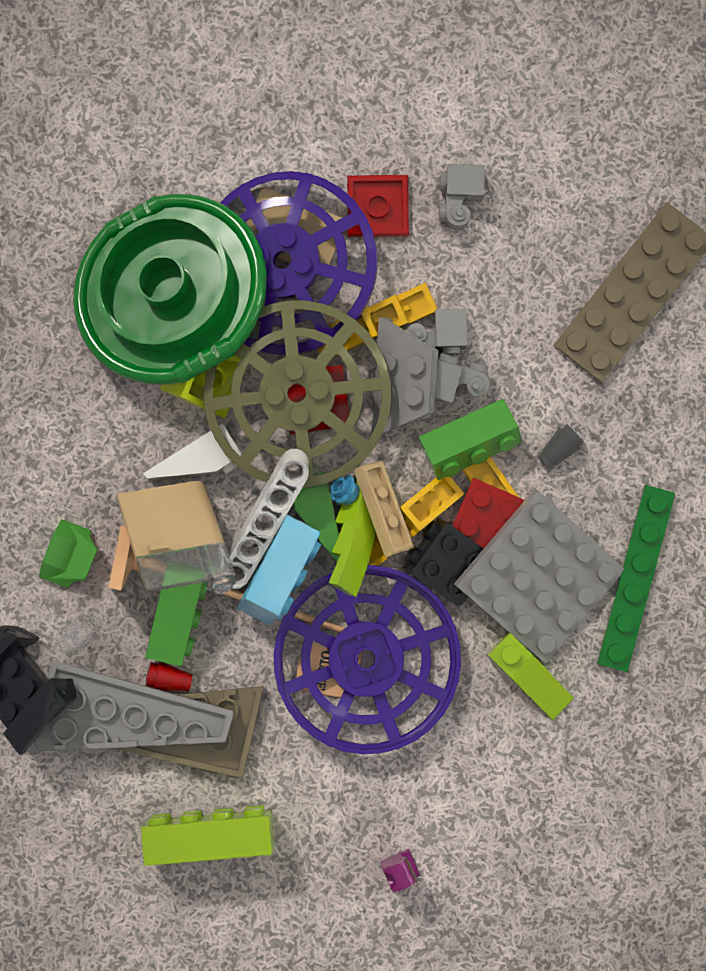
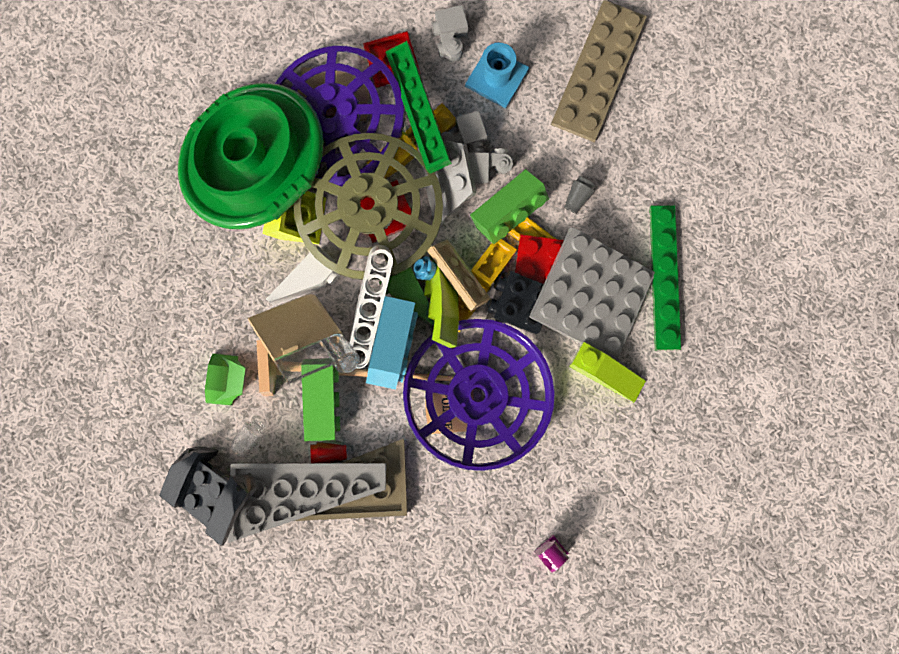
camera: 15 degrees left, 5 degrees down
(207, 837) = (391, 570): lime brick -> none
(392, 286) = (418, 108): none -> green plate
(501, 280) = (497, 74): none -> dark azure plant

